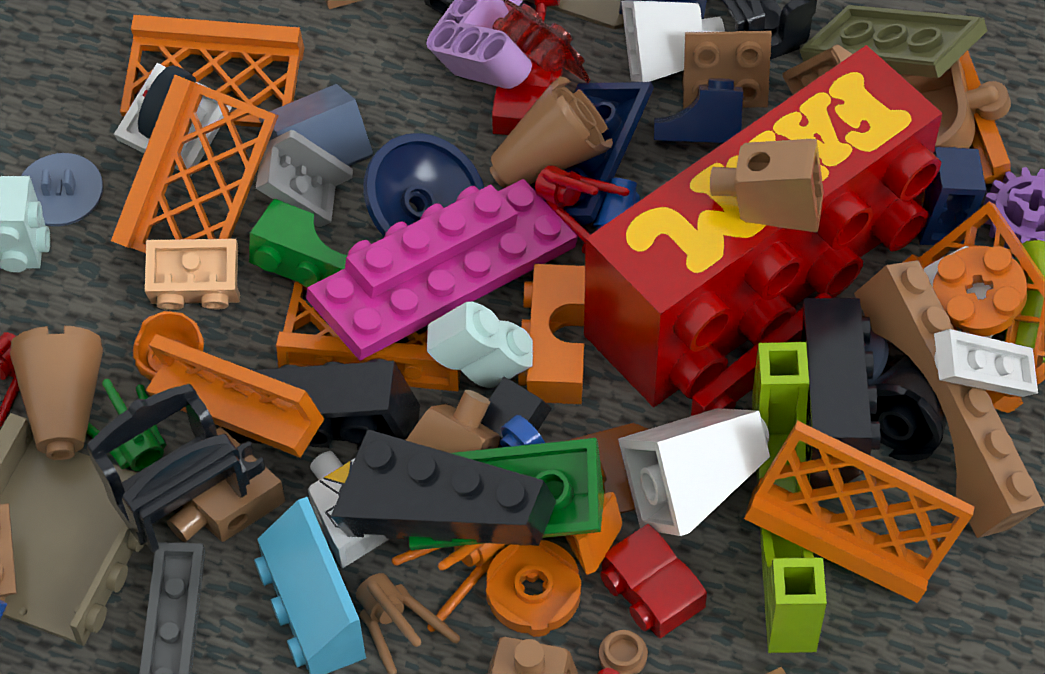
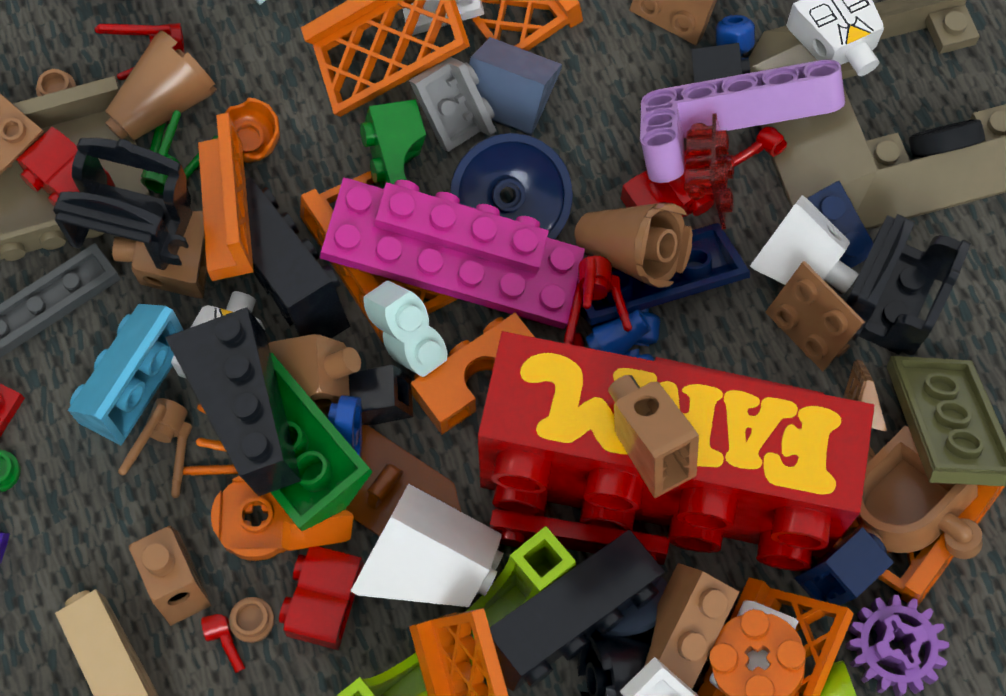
camera: 50 degrees right, 10 degrees up
(62, 521) = (49, 165): none -> red brick
(192, 273) = (321, 94): light nougat bracket -> none
(709, 118) = (760, 339): dark blue arch -> none

